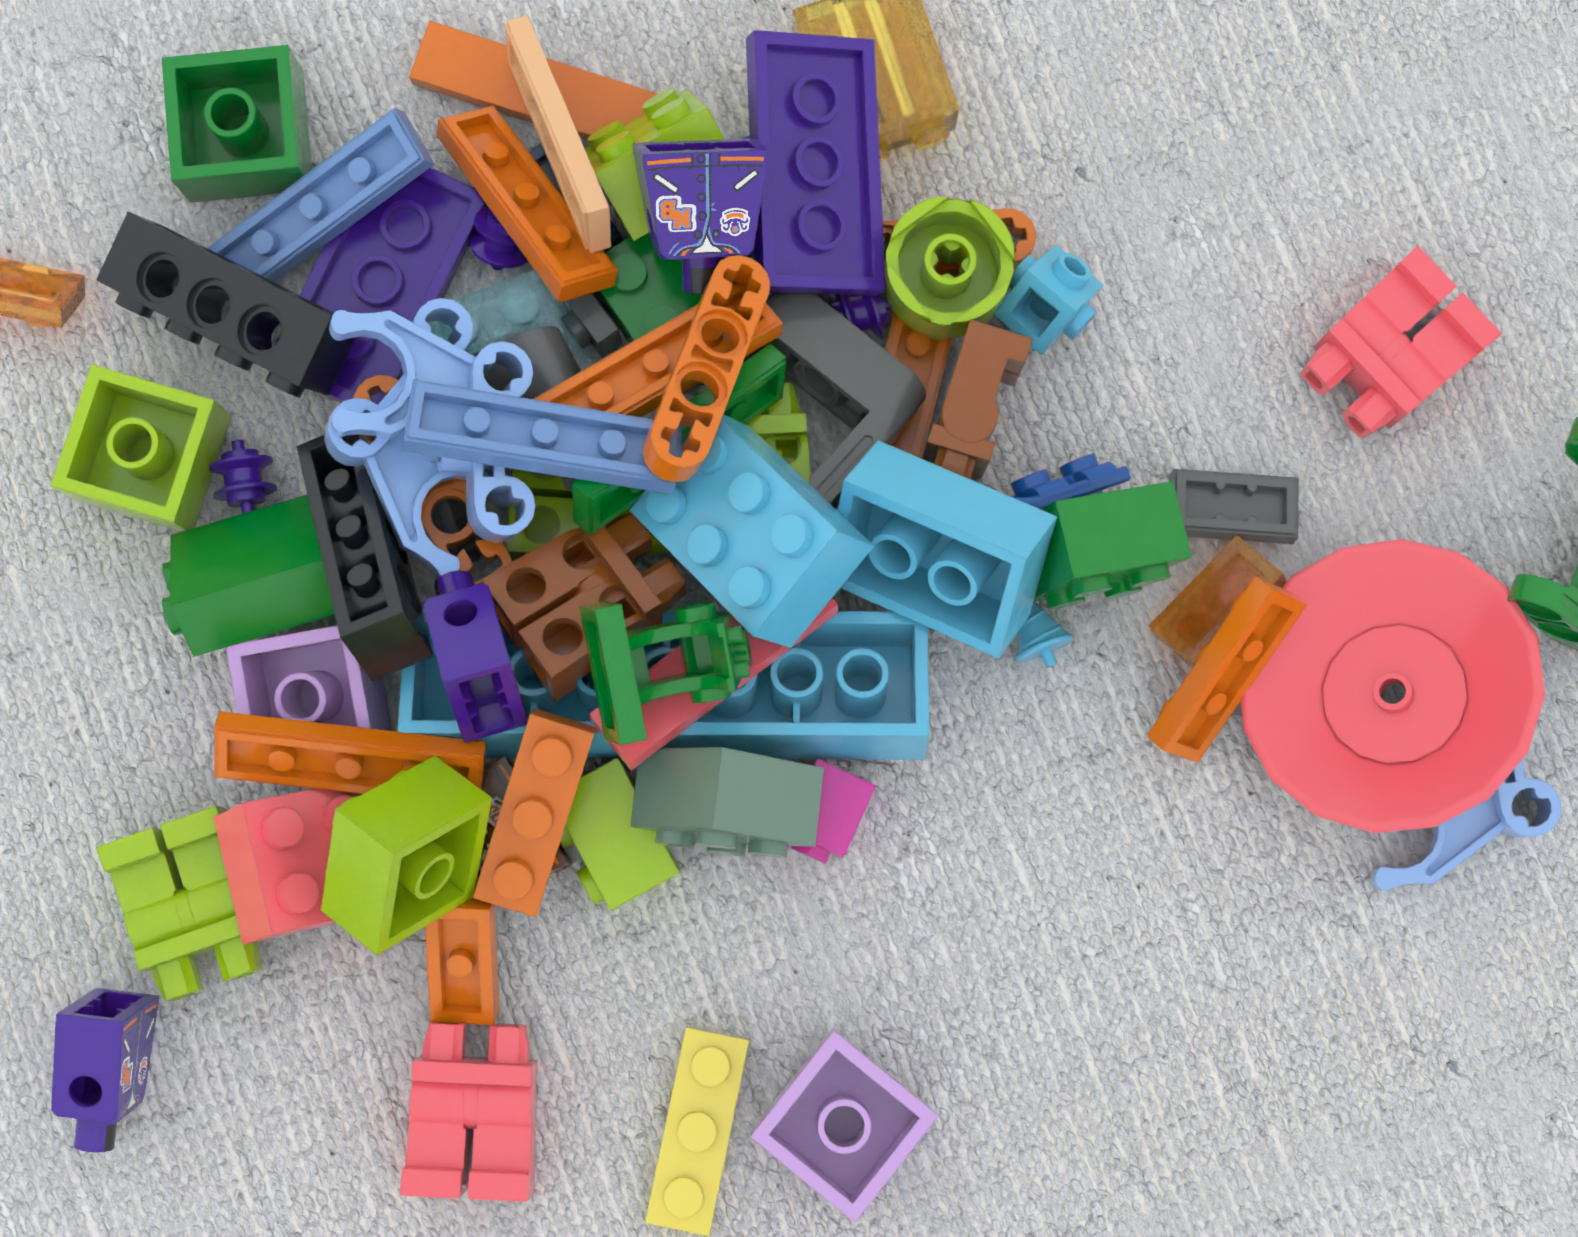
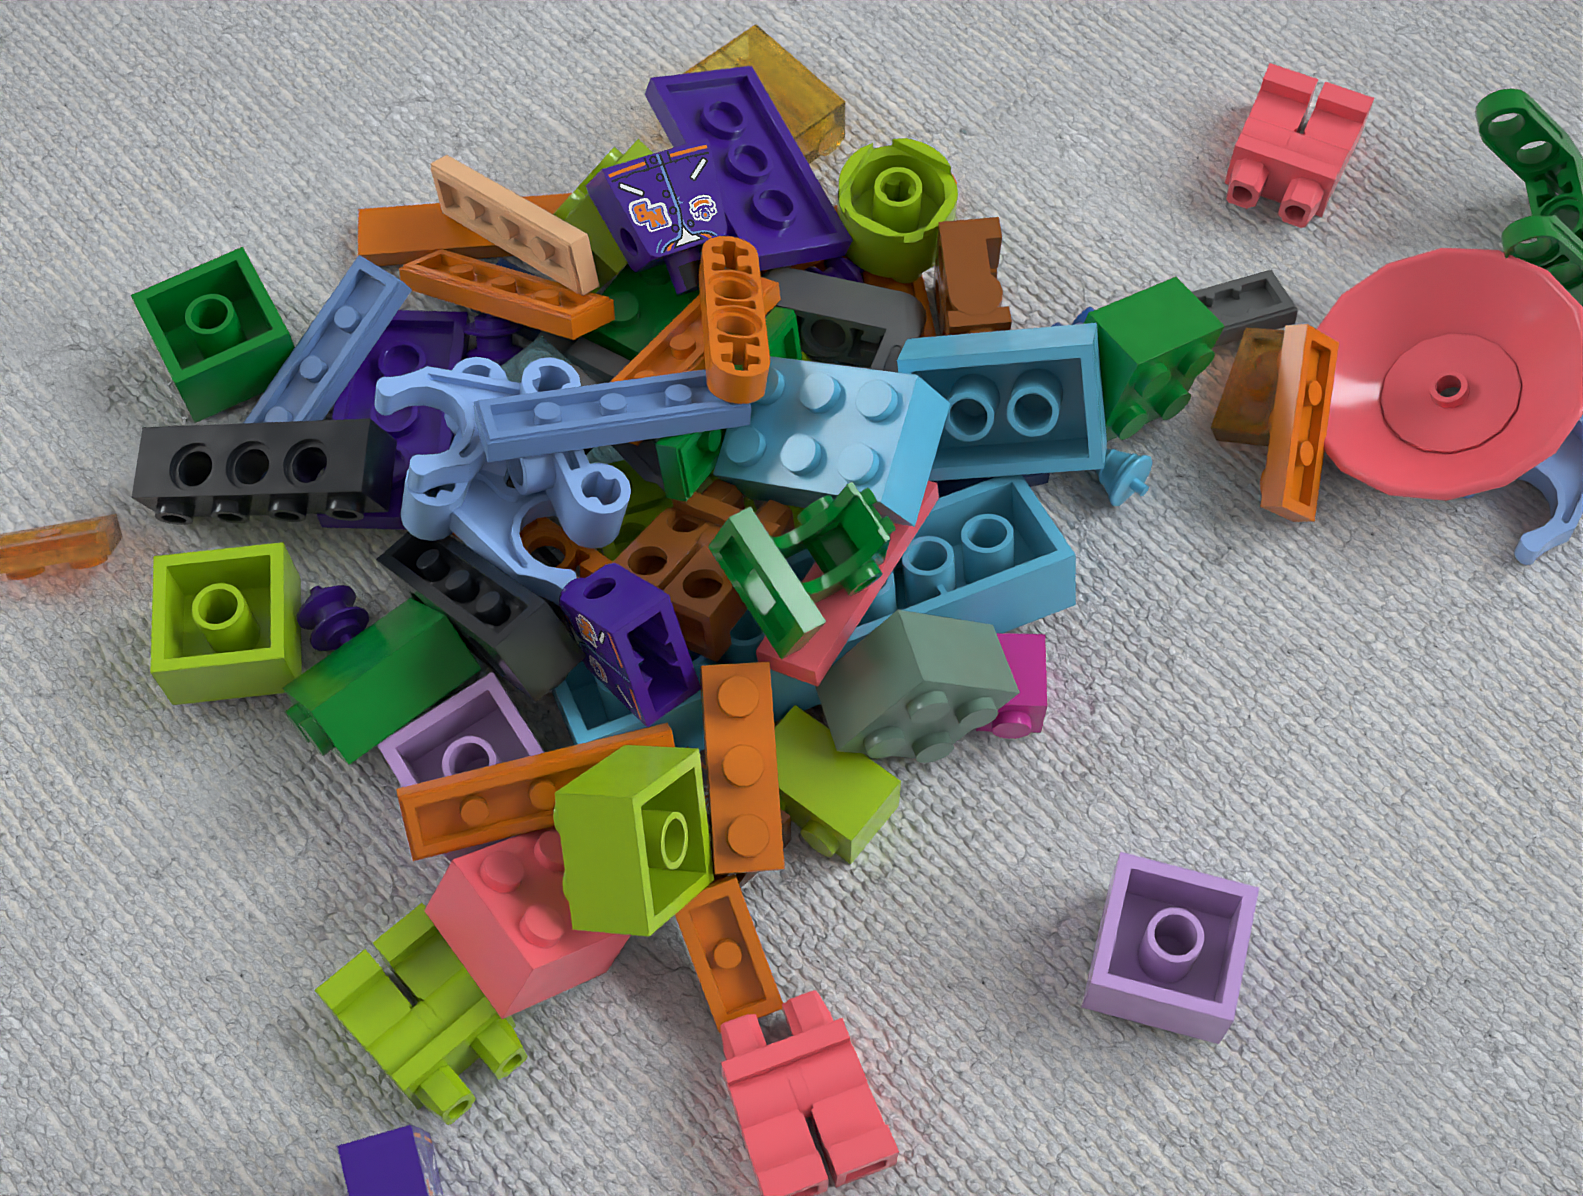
camera: 20 degrees left, 20 degrees down
(697, 1131) = (1030, 1032): light yellow plate -> none
(1050, 298) = (1003, 186): medium azure brick -> none

